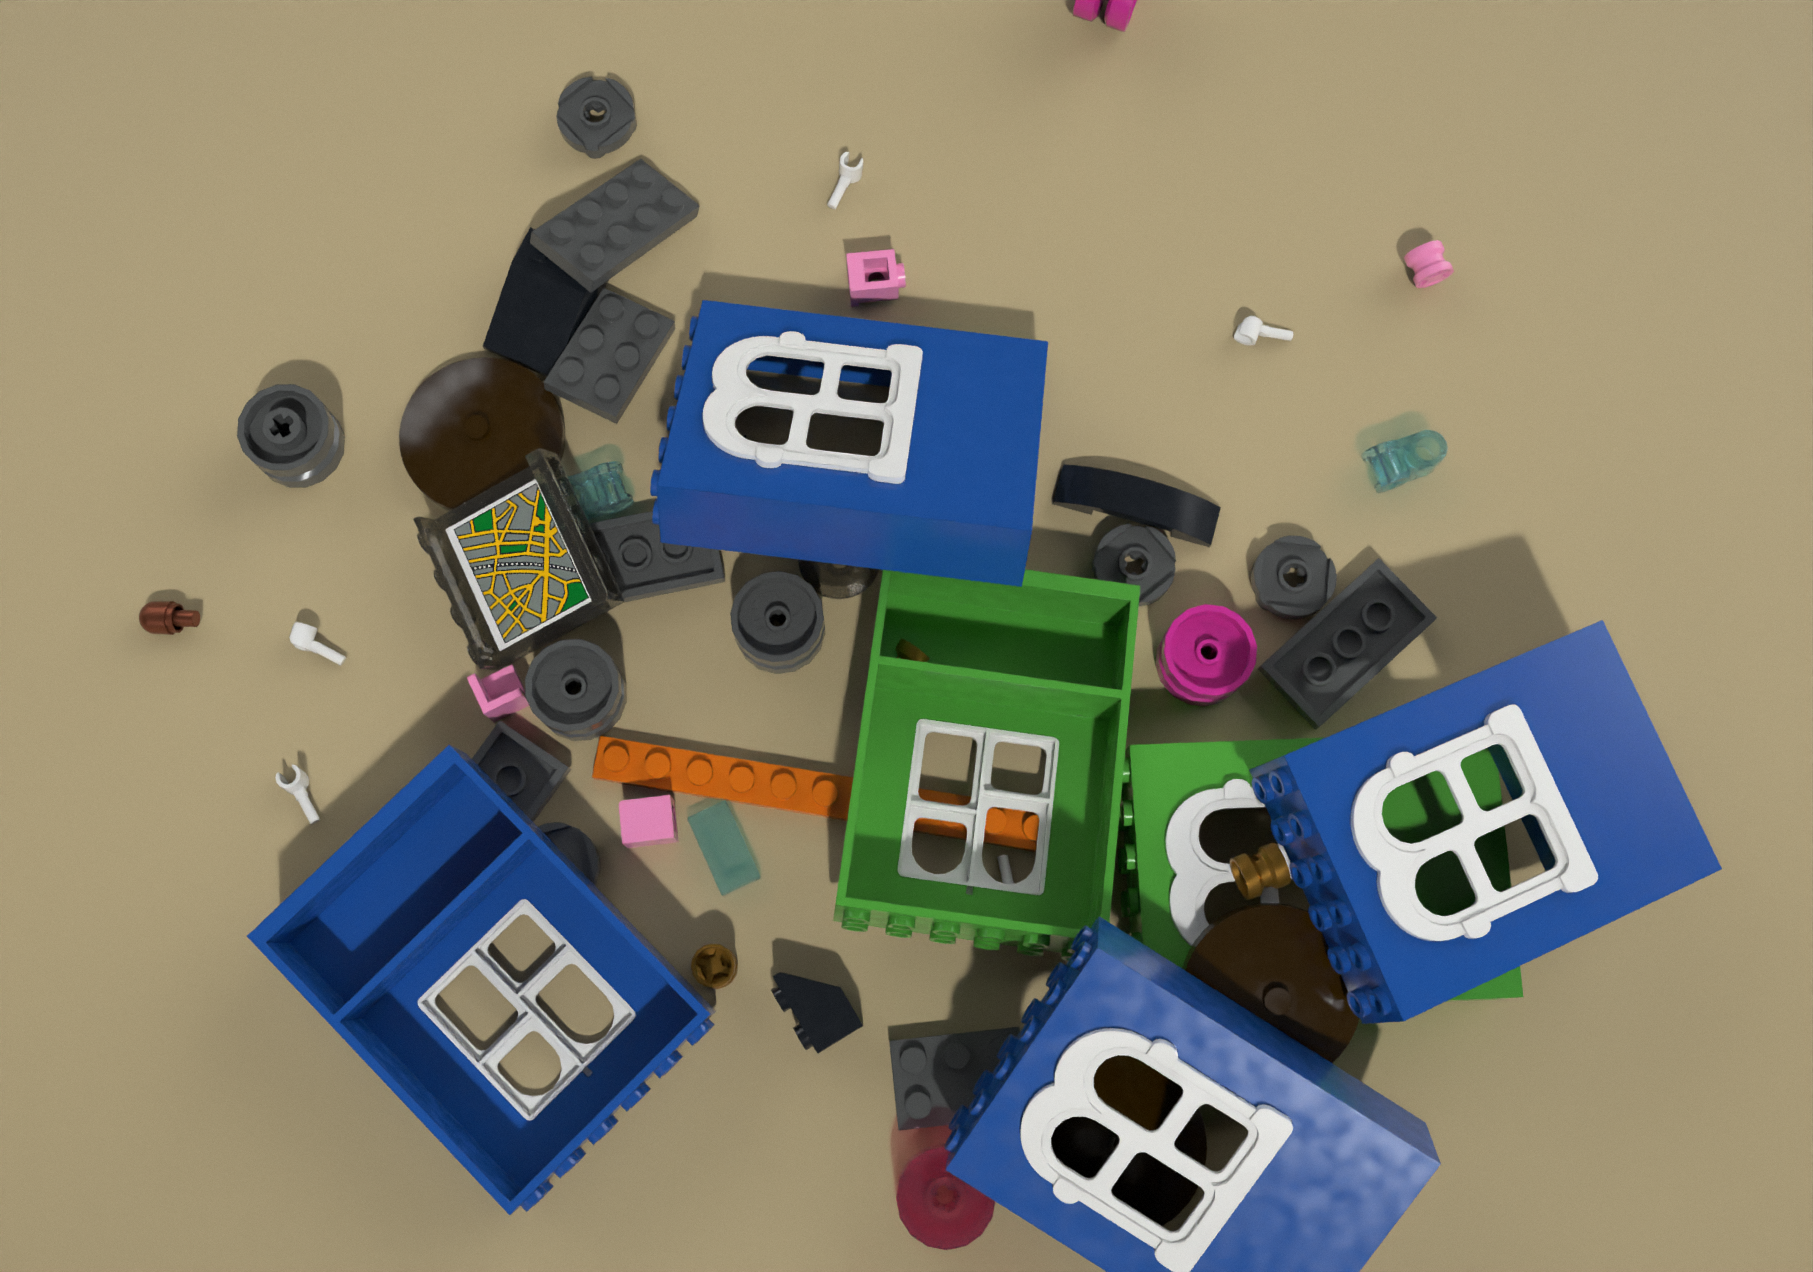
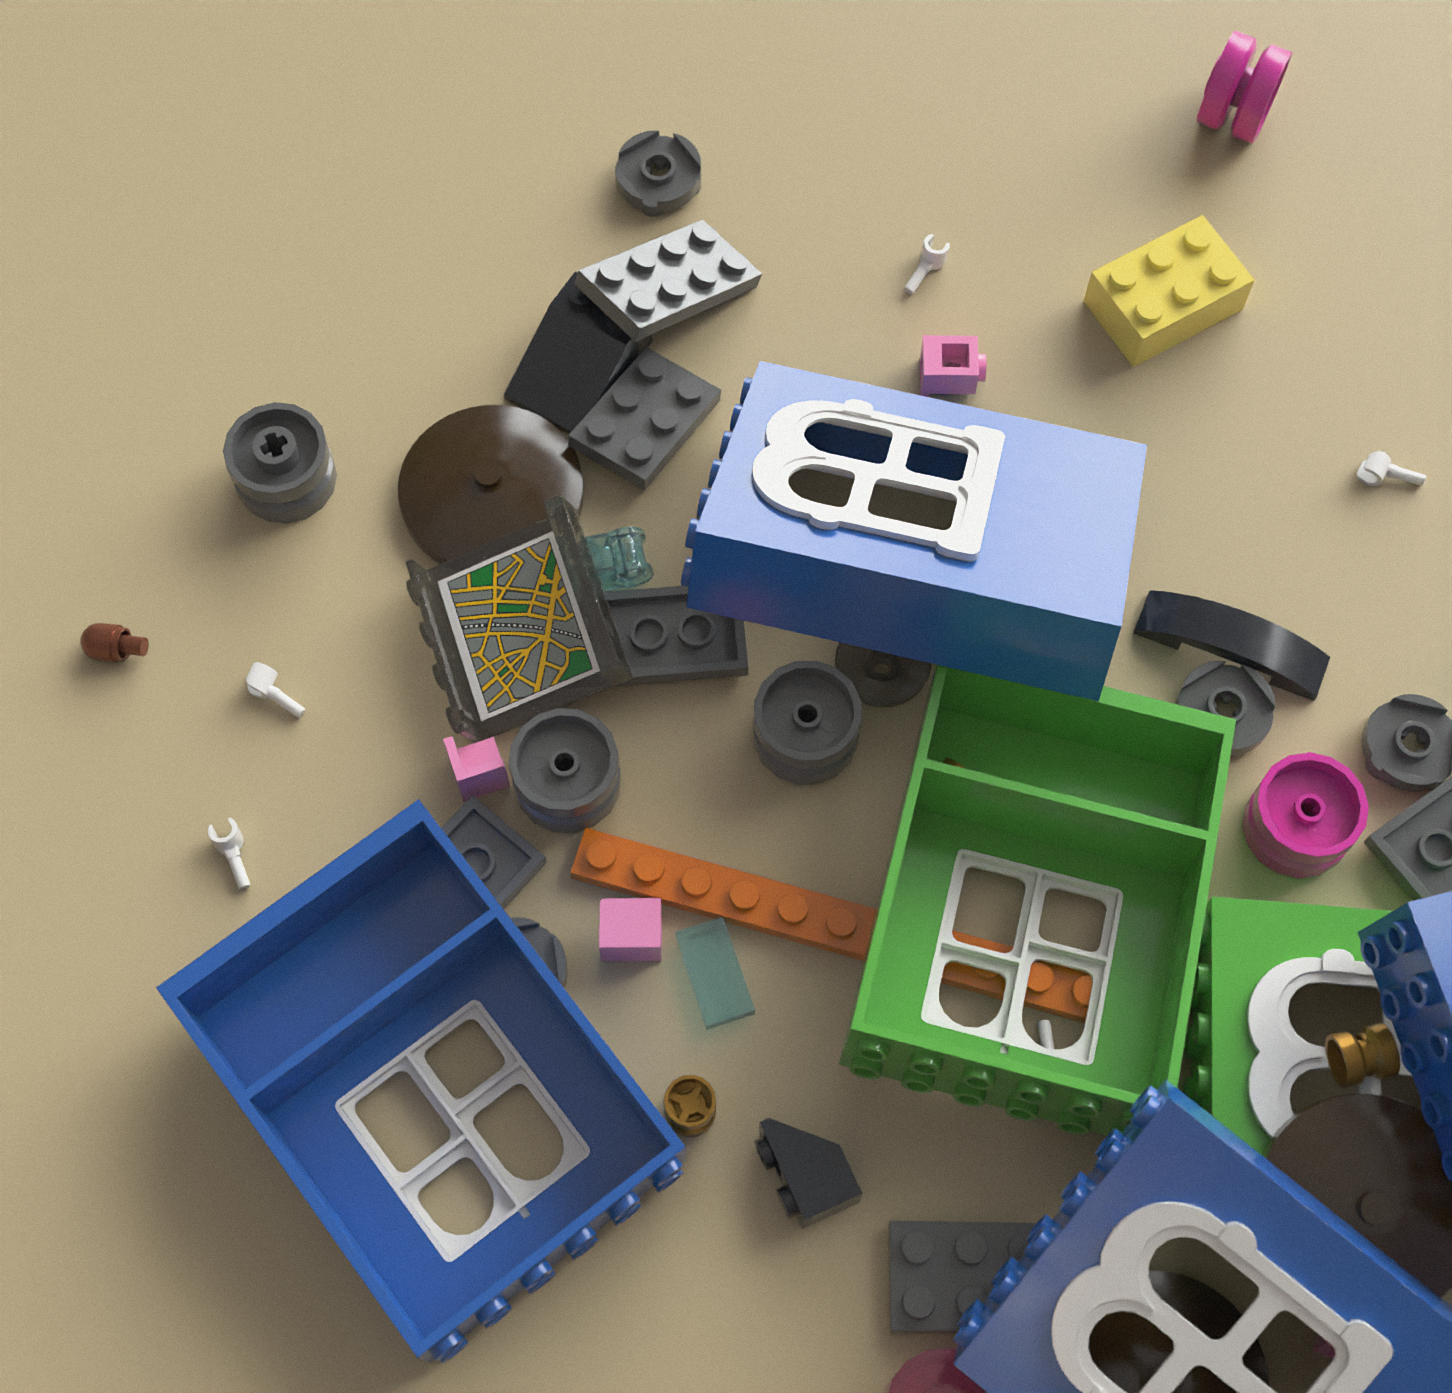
camera: 10 degrees right, 10 degrees down
(1059, 184) = (1168, 290): none -> light yellow brick

